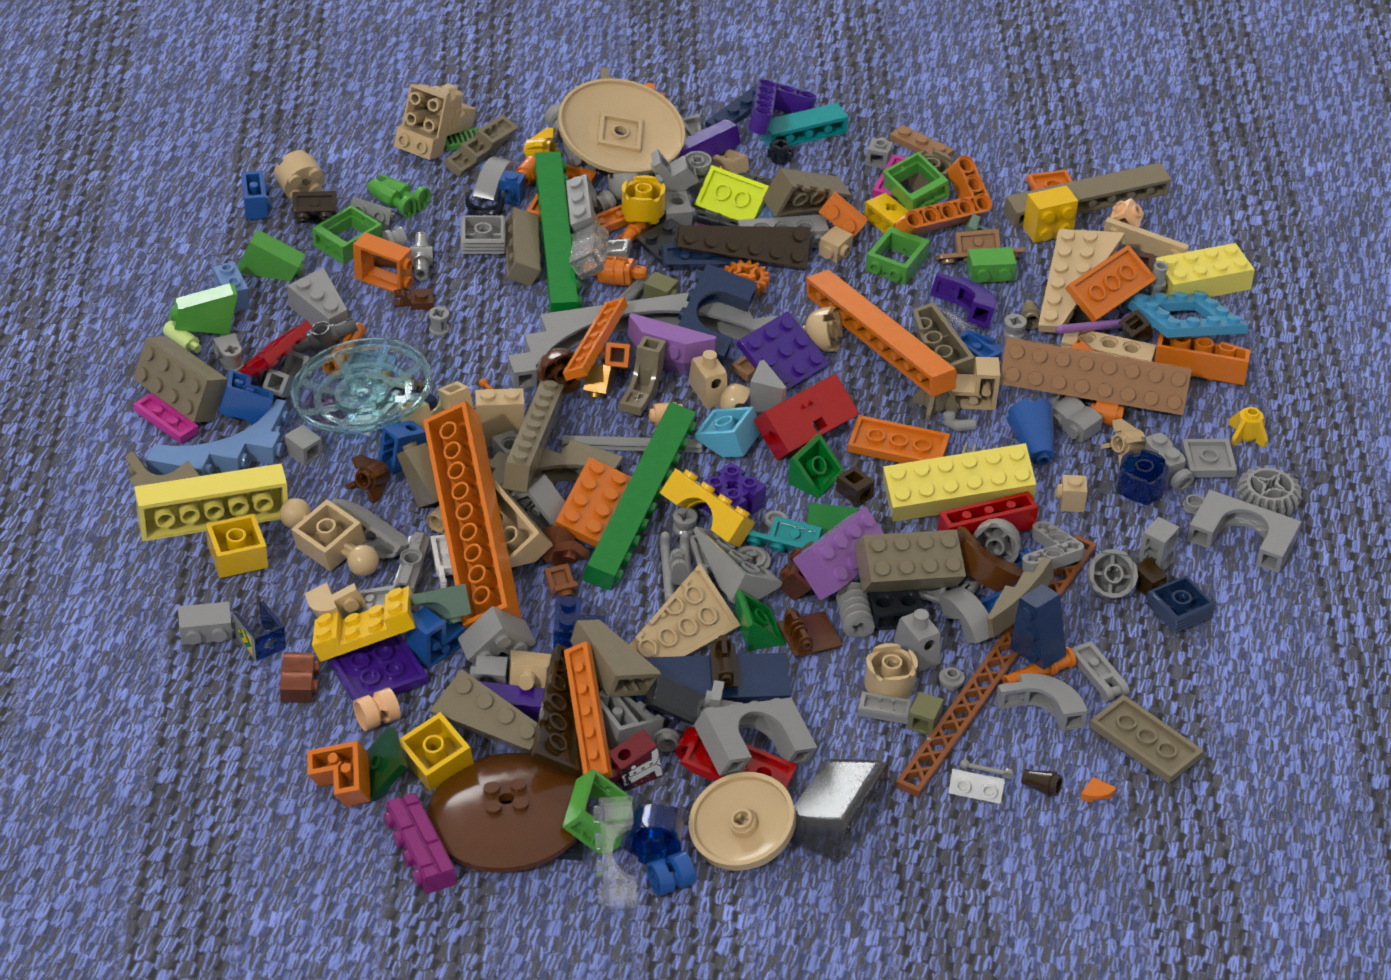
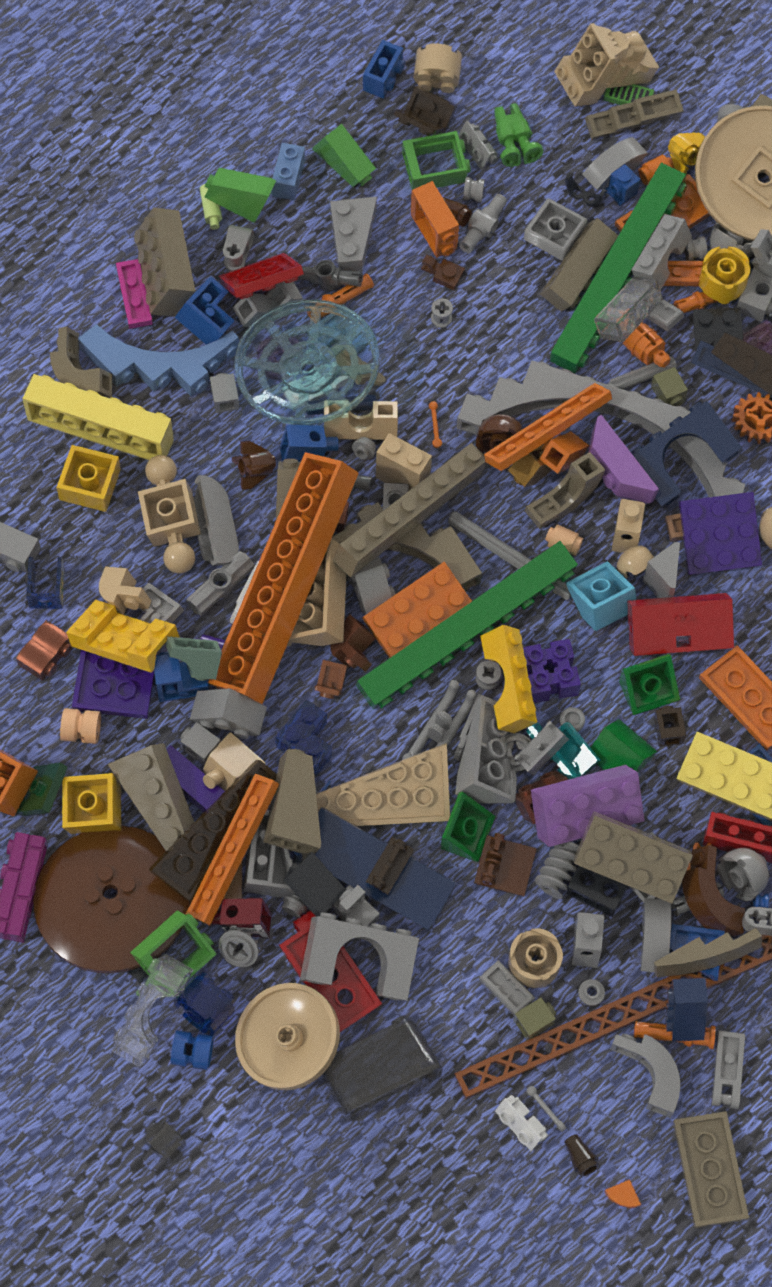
camera: 35 degrees right, 25 degrees up
(657, 778) = (245, 956): none -> light grey gear
(703, 947) = (164, 1140): none -> clear smoke brick
(773, 537) = (541, 748): none -> light grey hinge

